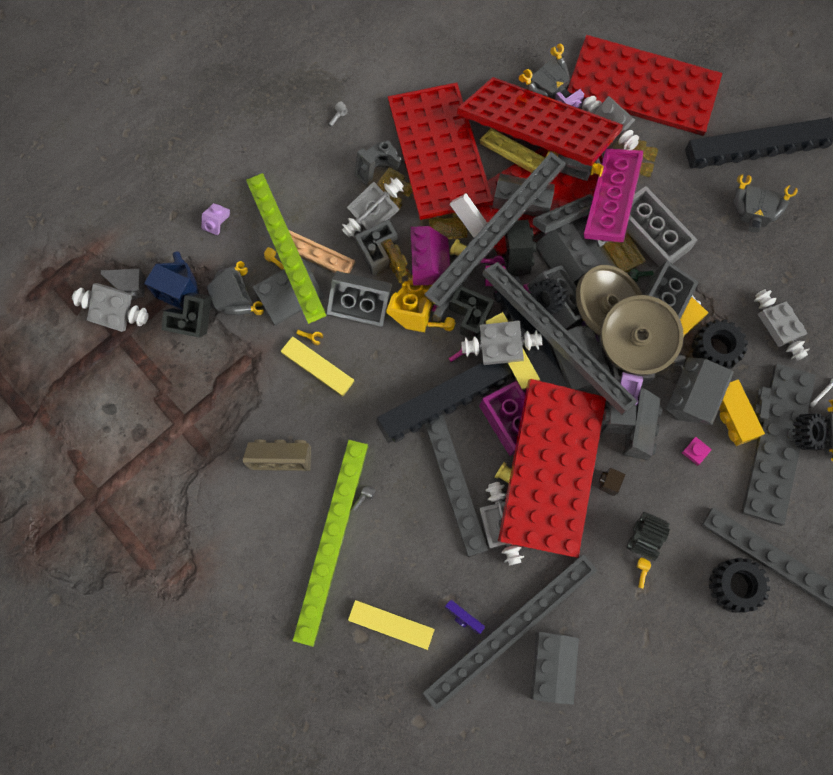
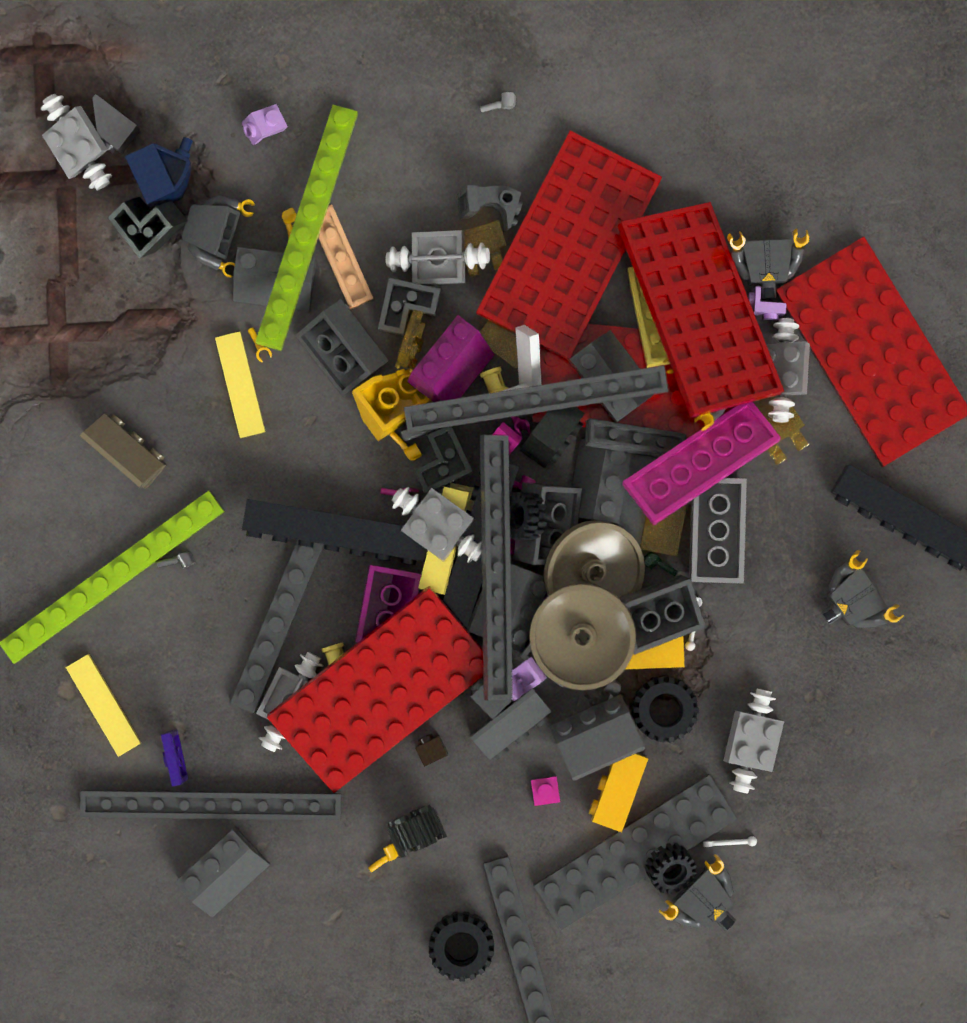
camera: 40 degrees right, 15 degrees up
(762, 407) = (646, 805): dark grey plate -> none

